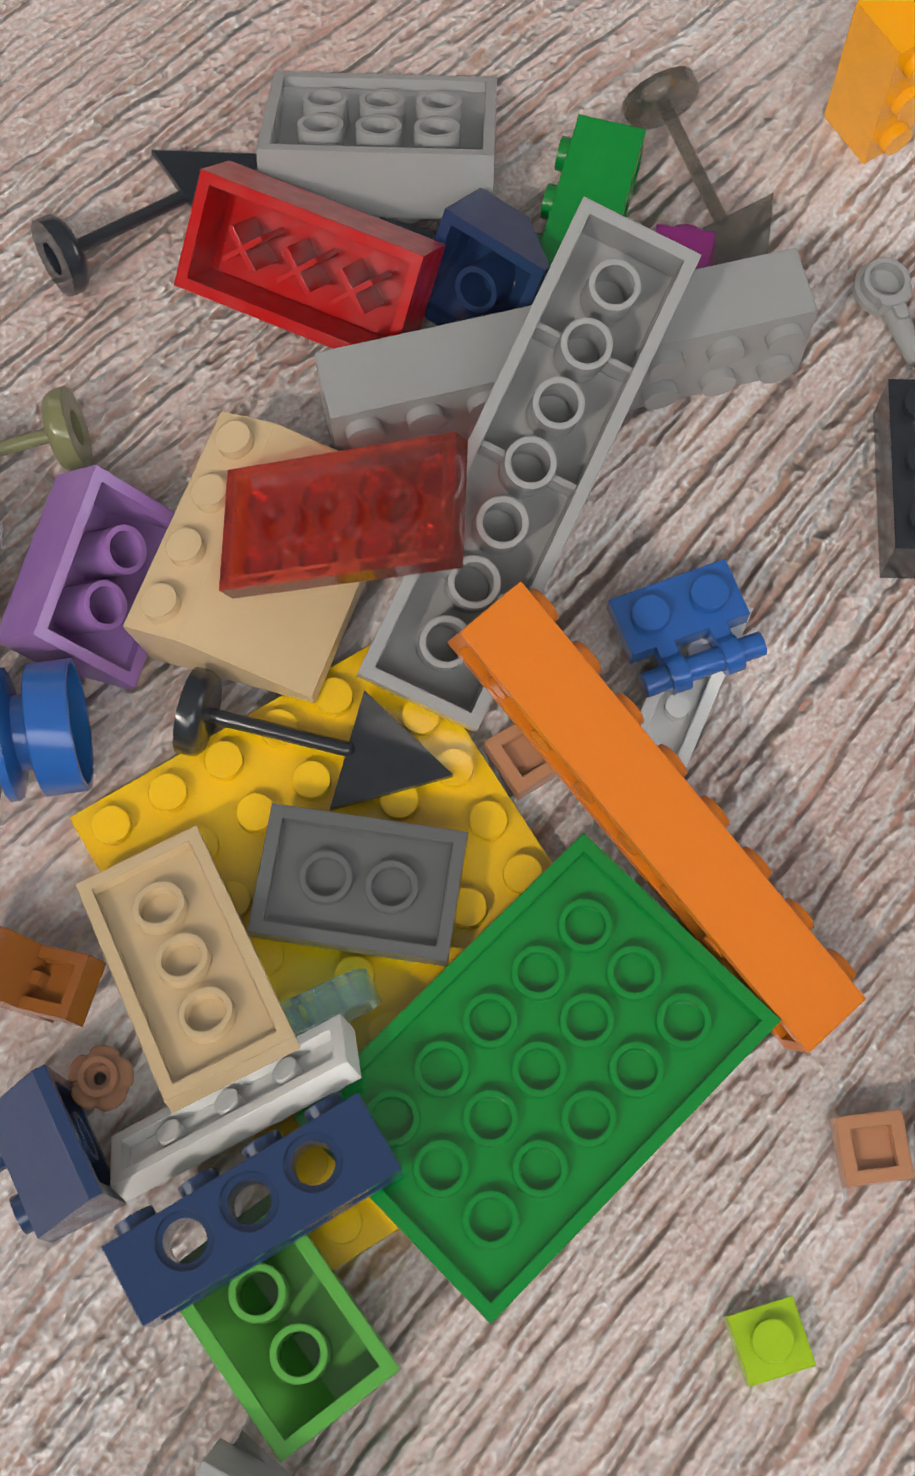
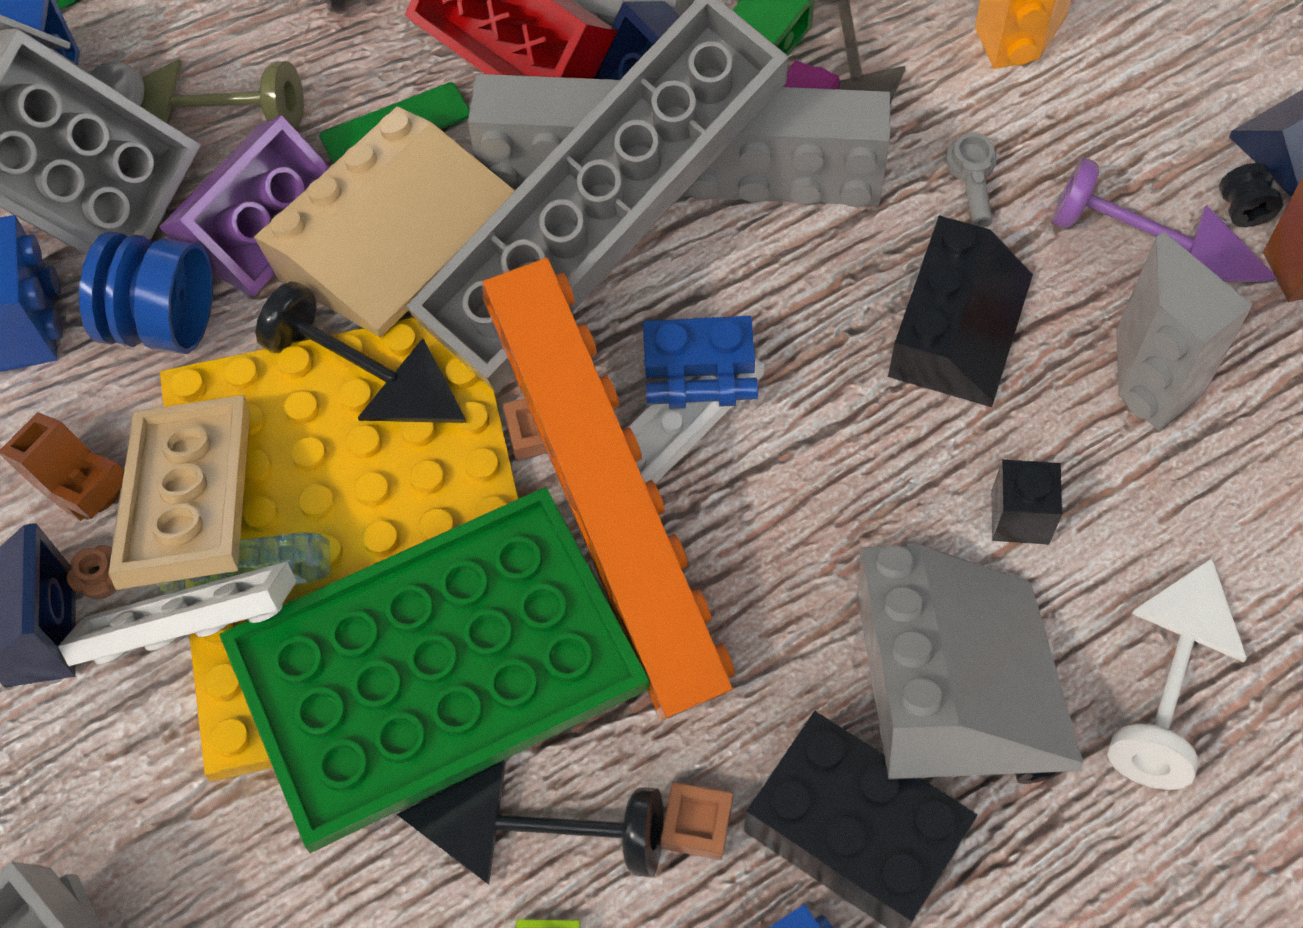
camera: 20 degrees right, 10 degrees down
(143, 1251) = (44, 690): dark blue brick -> none
(172, 454) = (438, 105): none -> green piece
(290, 1342) = (141, 797): bright green slope -> none
(345, 516) = (442, 186): clear red plate -> none
(358, 884) = (352, 476): dark grey plate -> none
(633, 1226) = (467, 818): none -> black piece

